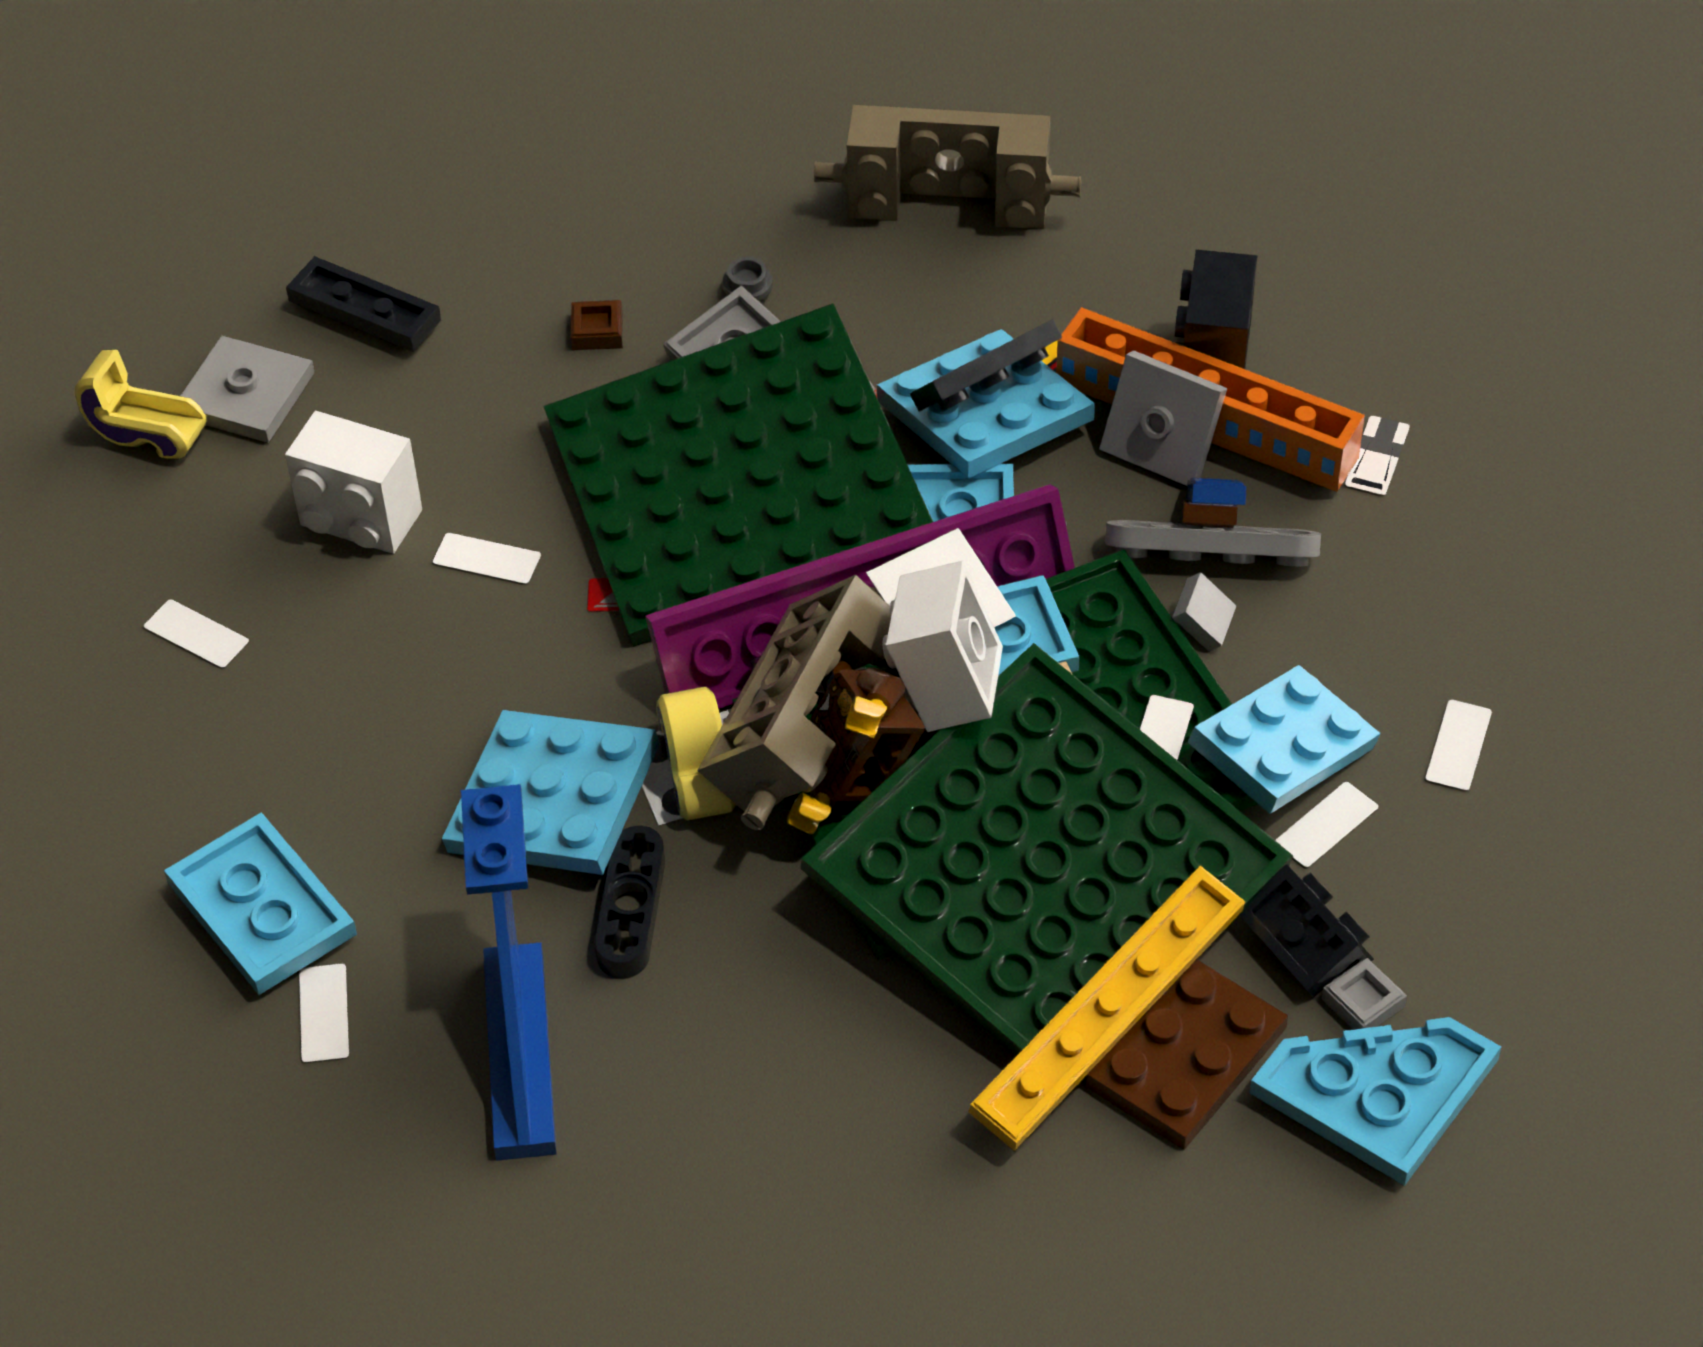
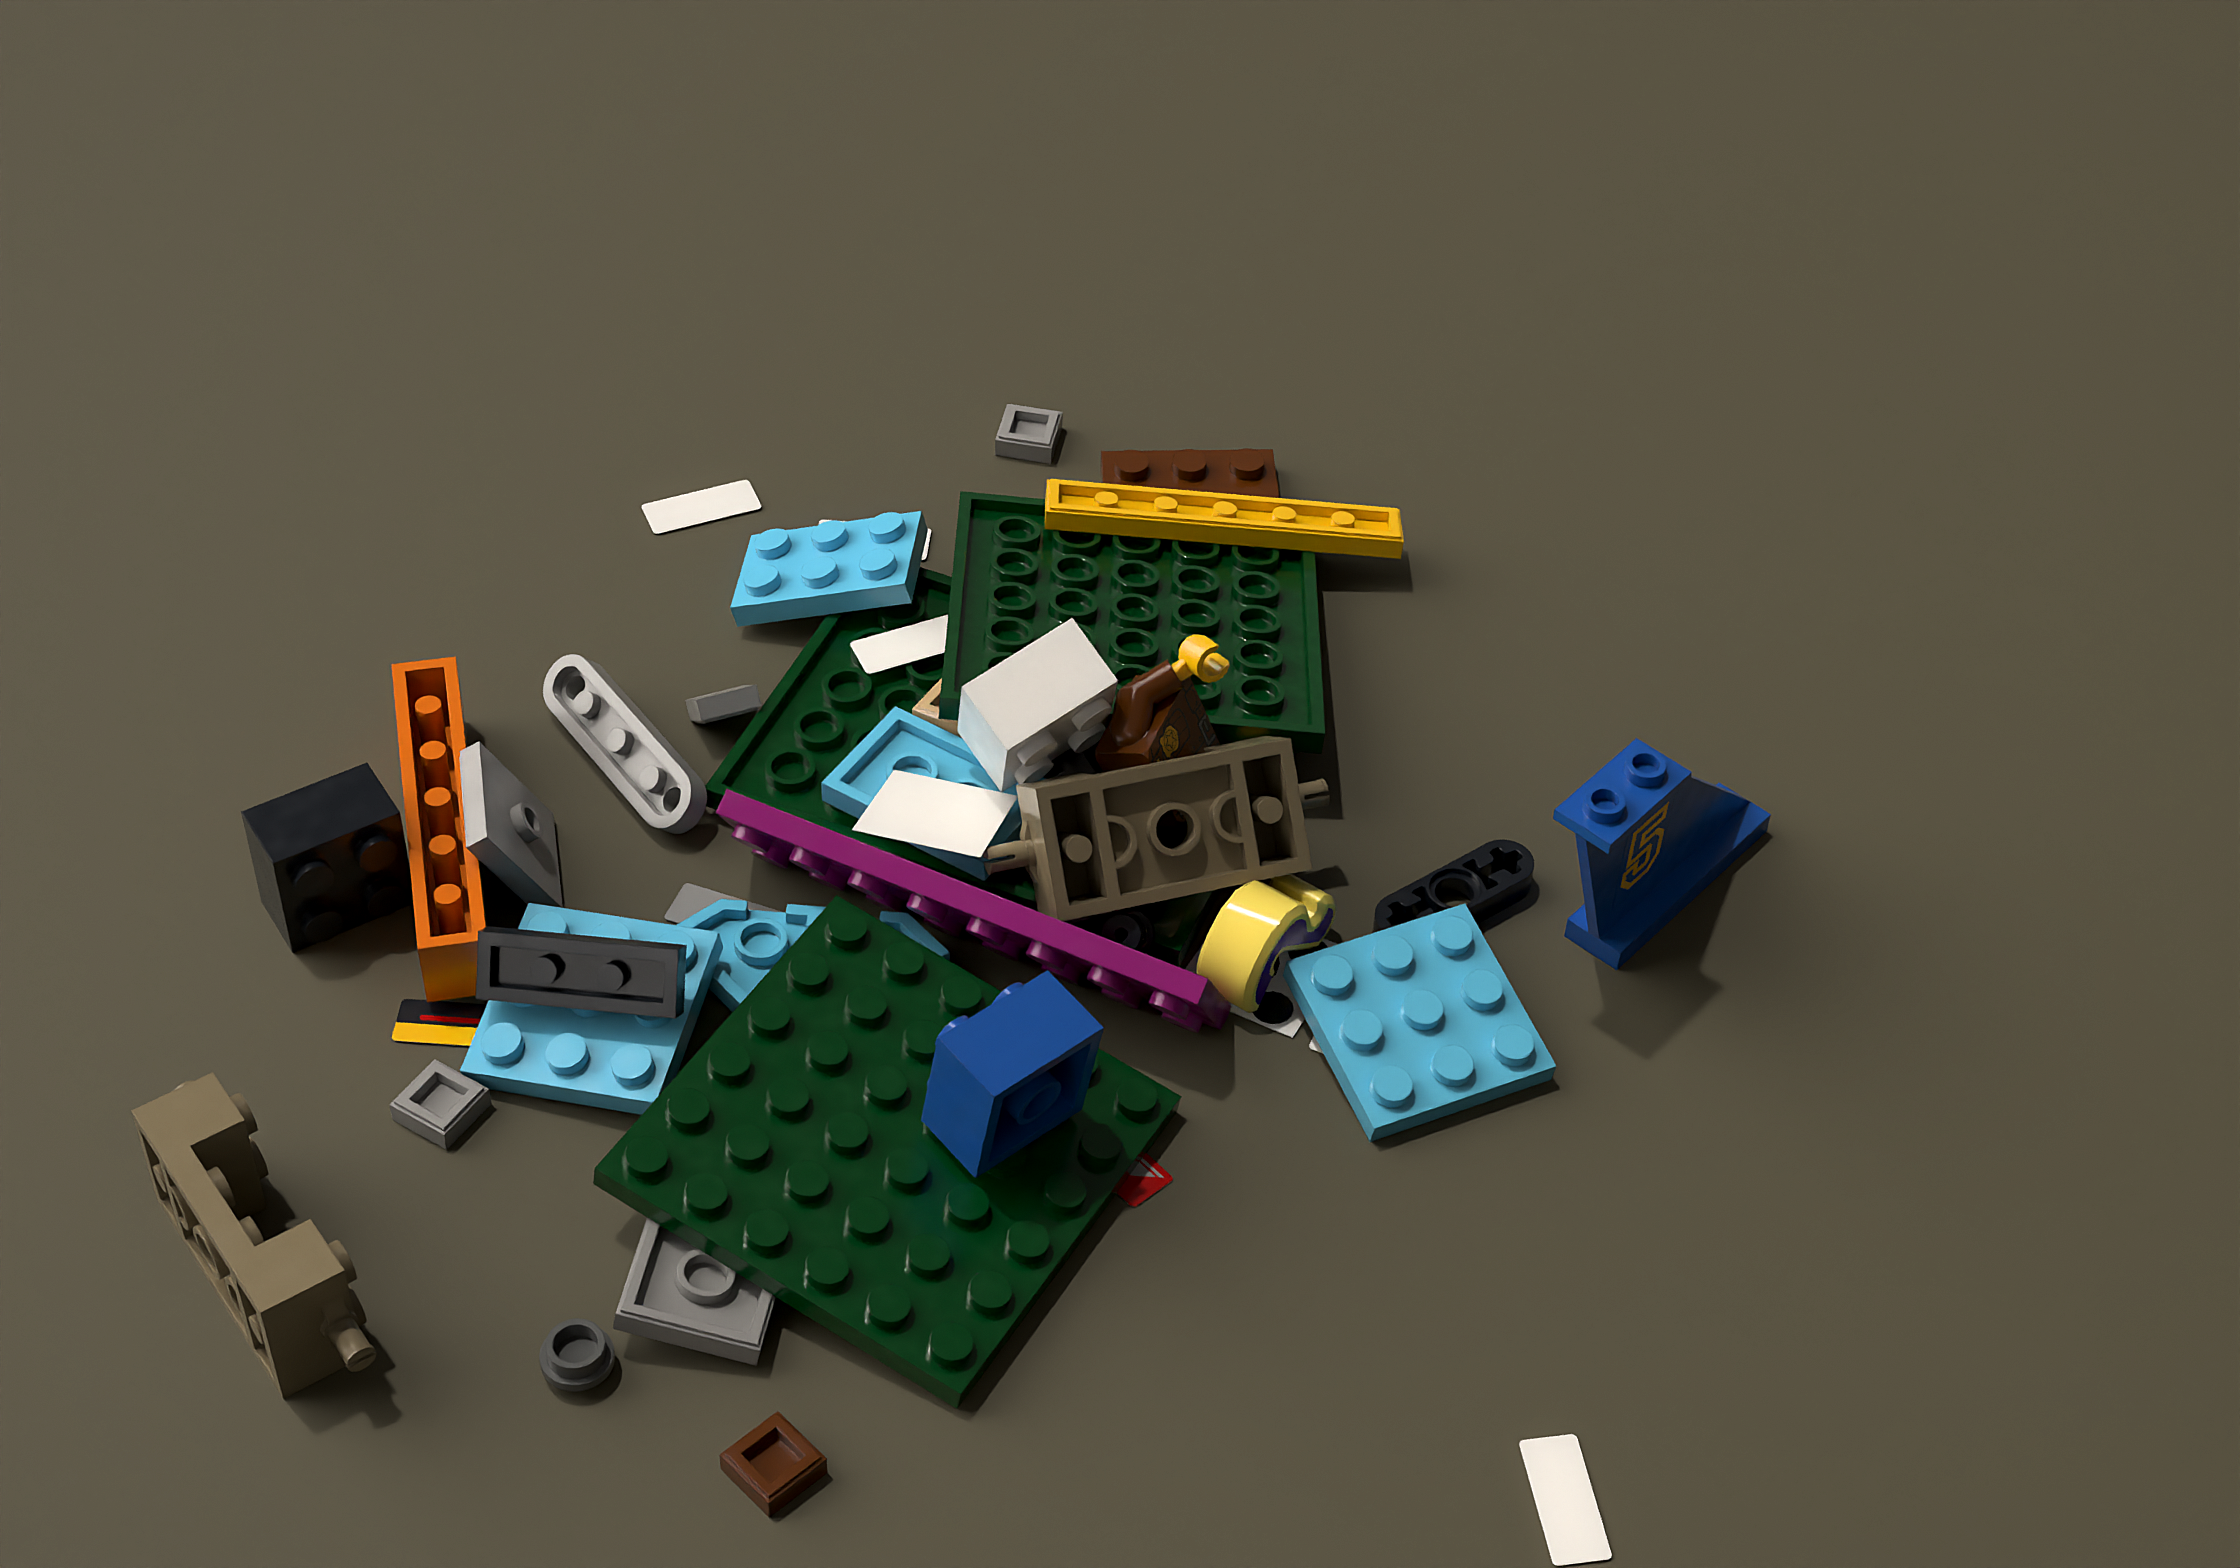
camera: 135 degrees left, 5 degrees down
(260, 903) = (1775, 1149): medium azure plate -> none
(323, 1013) = (1796, 1040): white sticker -> none
(354, 482) = (1270, 1437): white brick -> none
(487, 558) = (1198, 1316): white sticker -> none
(684, 481) = (1010, 1072): none -> blue brick
(991, 314) = (440, 1104): none -> light grey tile
(1209, 514) = (589, 764): reddish brown tile -> none
(1216, 491) = (558, 771): blue tile -> none
(1303, 931) = (1011, 463): black bracket -> none
(1378, 455) = (356, 722): sticker -> none
(1379, 1088) = (1107, 376): medium azure plate -> none

